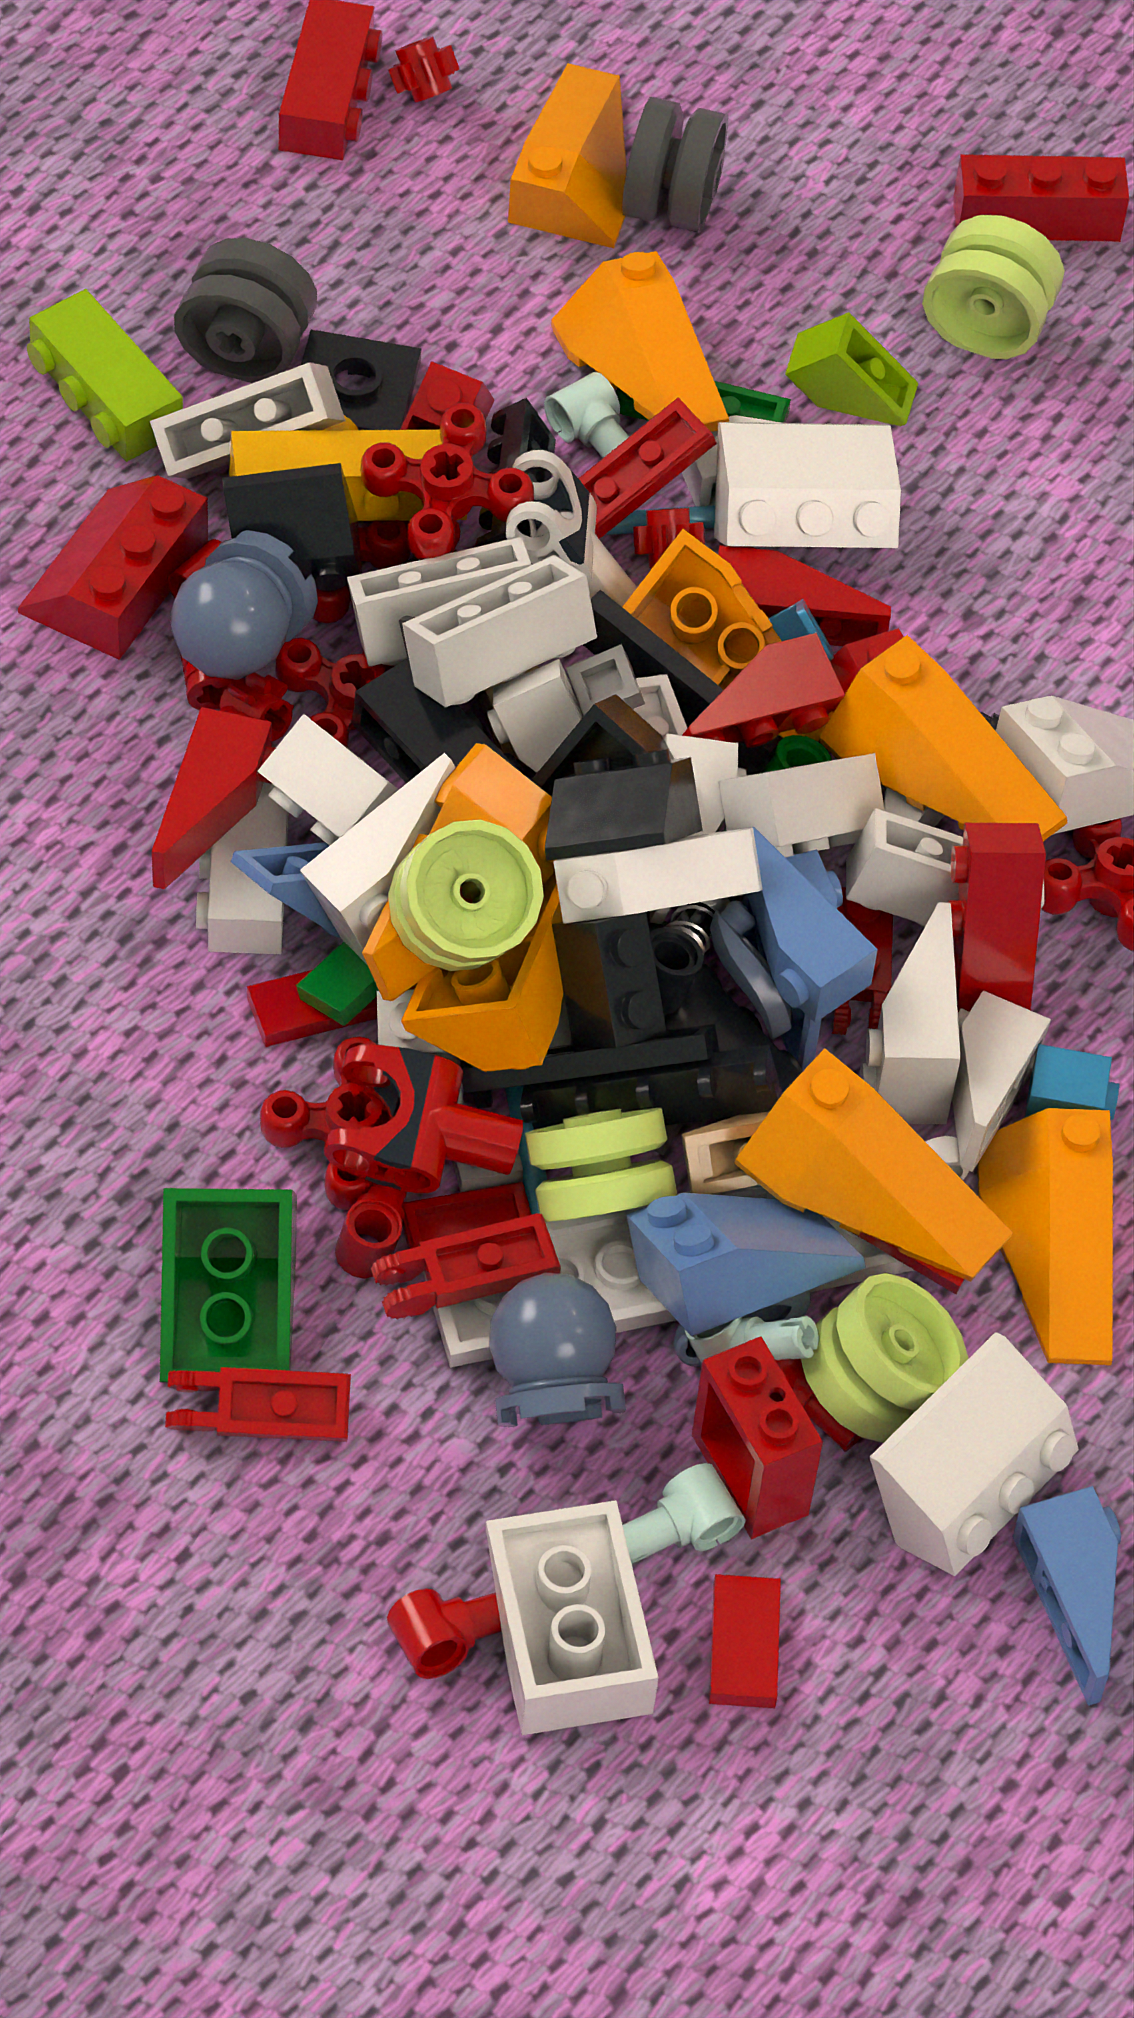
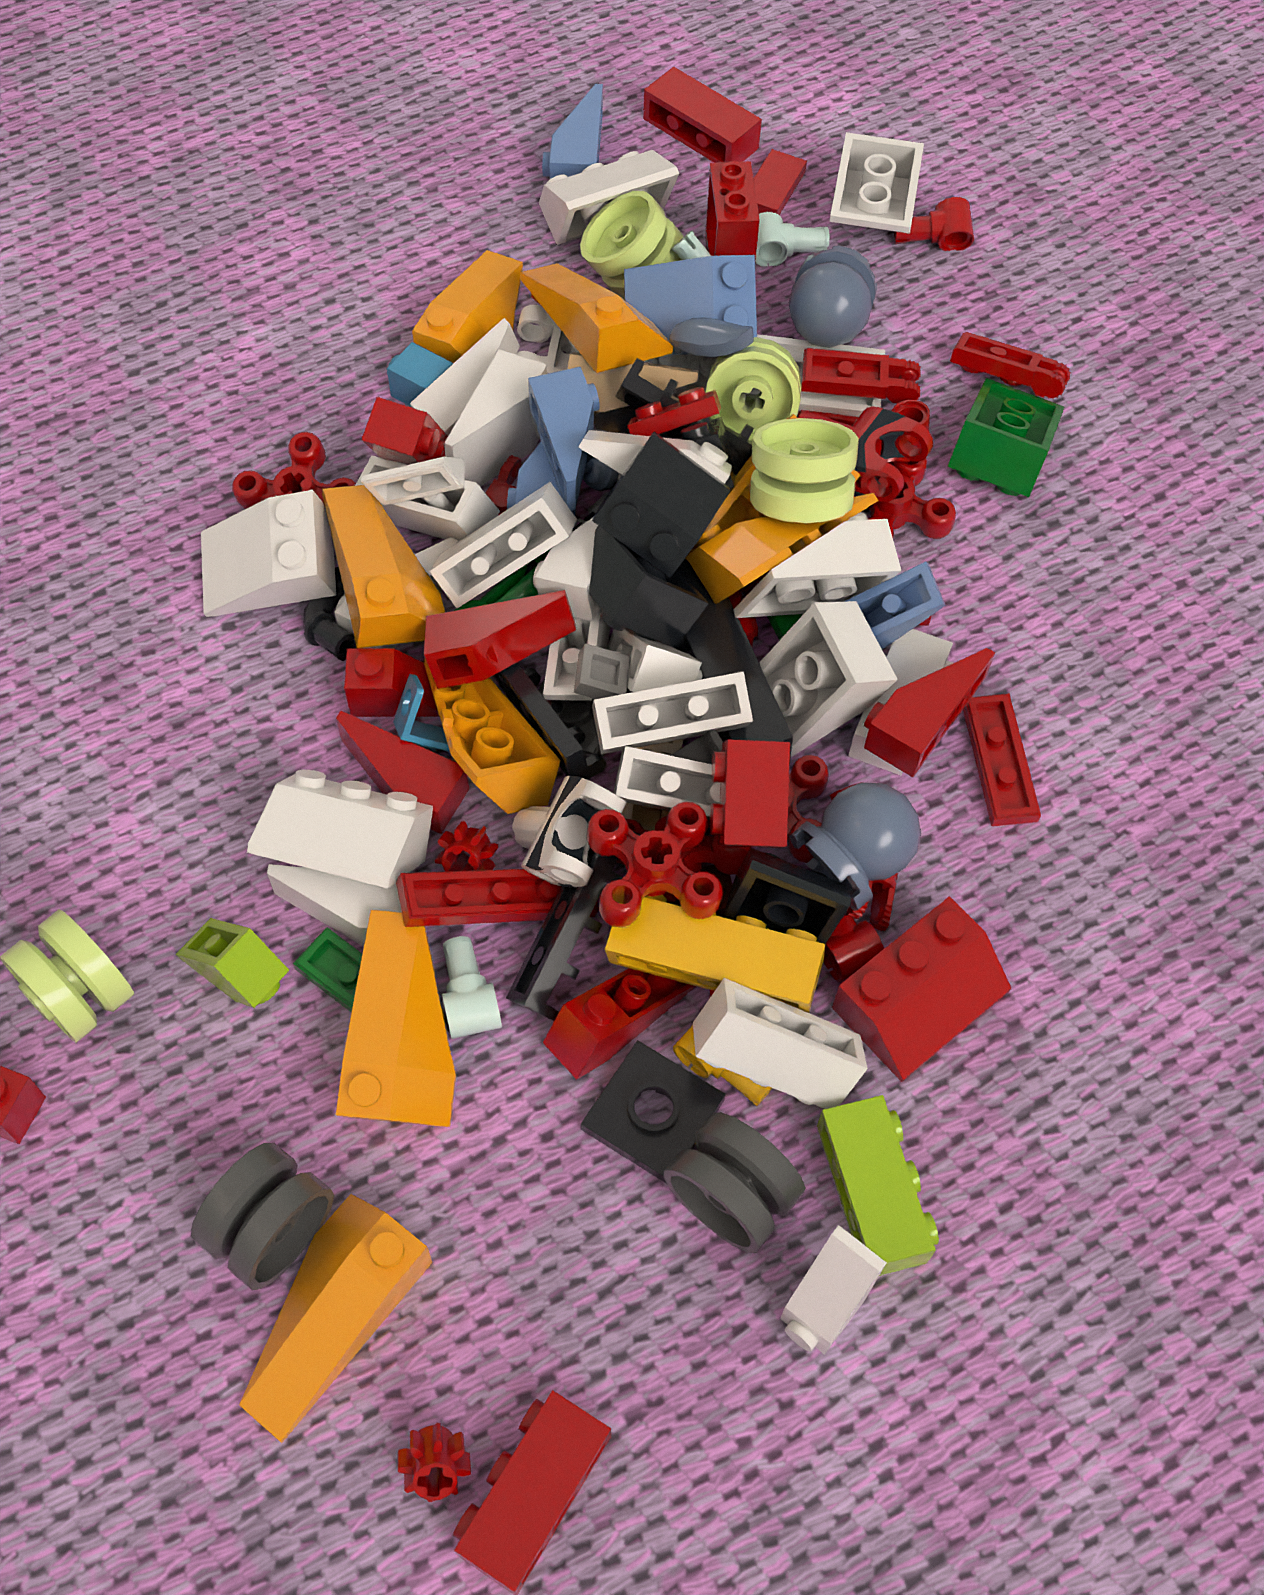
camera: 155 degrees left, 5 degrees up
(103, 849) = (1001, 760): none -> red tile
(116, 251) = (831, 1291): none -> white slope
(372, 560) = (751, 793): none -> red brick
(673, 1004) = (692, 407): none -> red plate
(685, 1156) = (710, 337): none -> sand blue arm
(914, 1710) = (701, 118): none -> red brick
(935, 826) = (416, 480): none -> white slope

